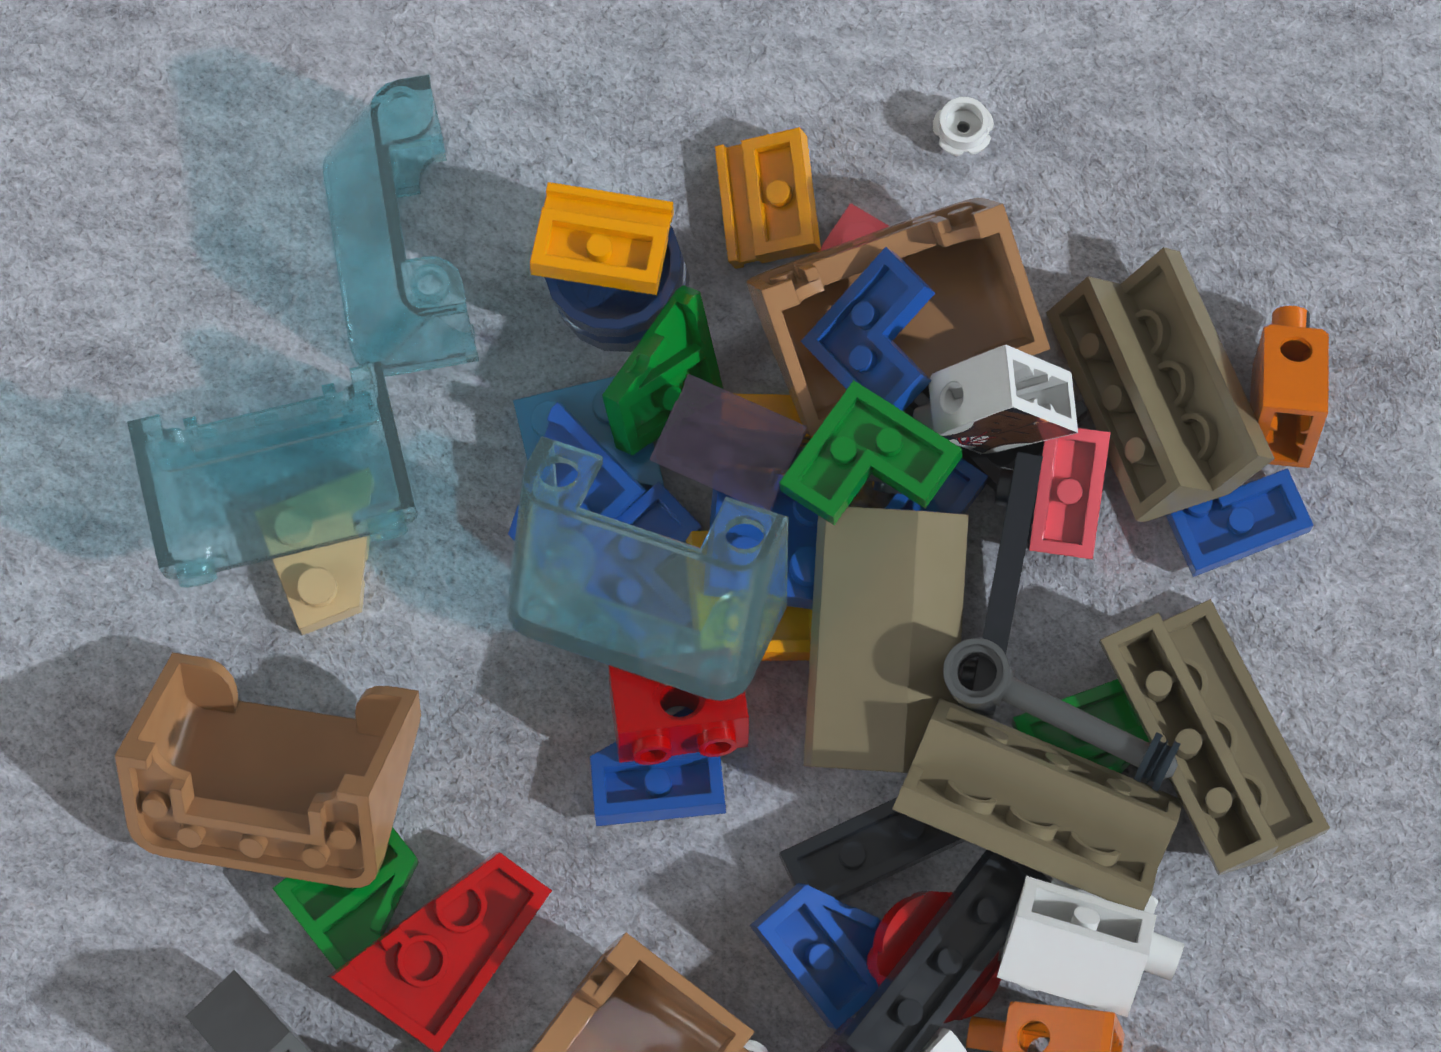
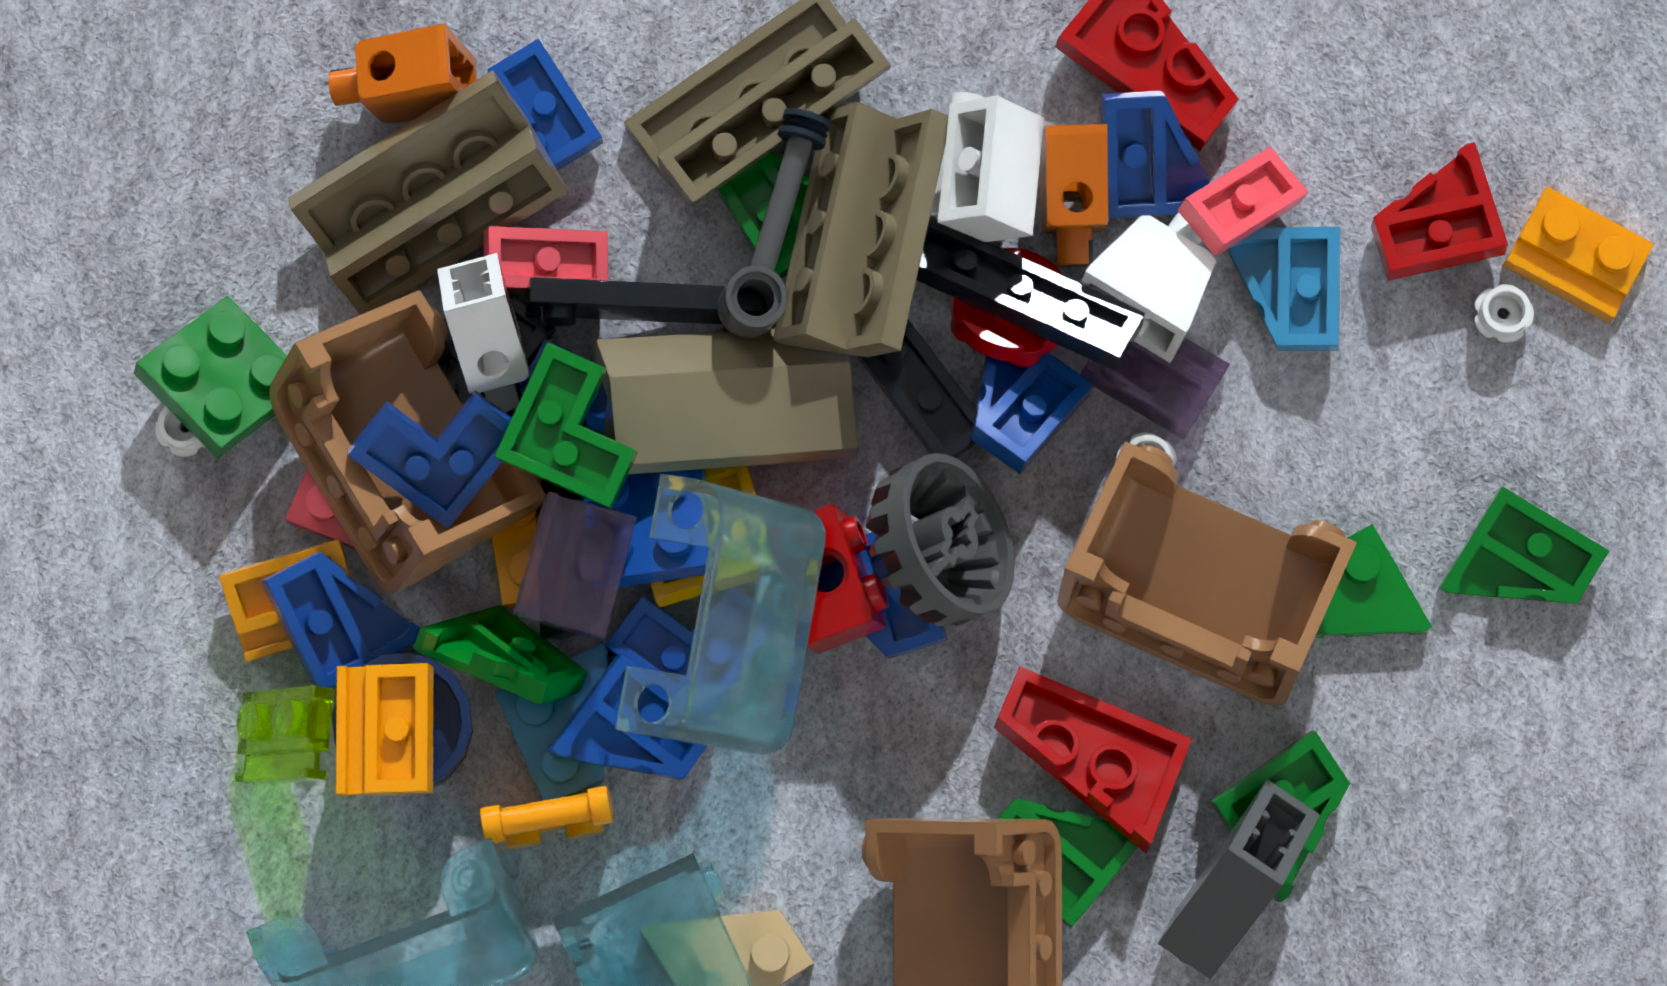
camera: 105 degrees left, 5 degrees up
(495, 391) = (522, 824): none -> light orange plate
(630, 163) = (284, 734): none -> clear neon green plate
(688, 850) = (958, 552): none -> dark grey gear
(734, 228) = (334, 618): none -> blue wing
(1007, 155) = (215, 376): none -> green plate

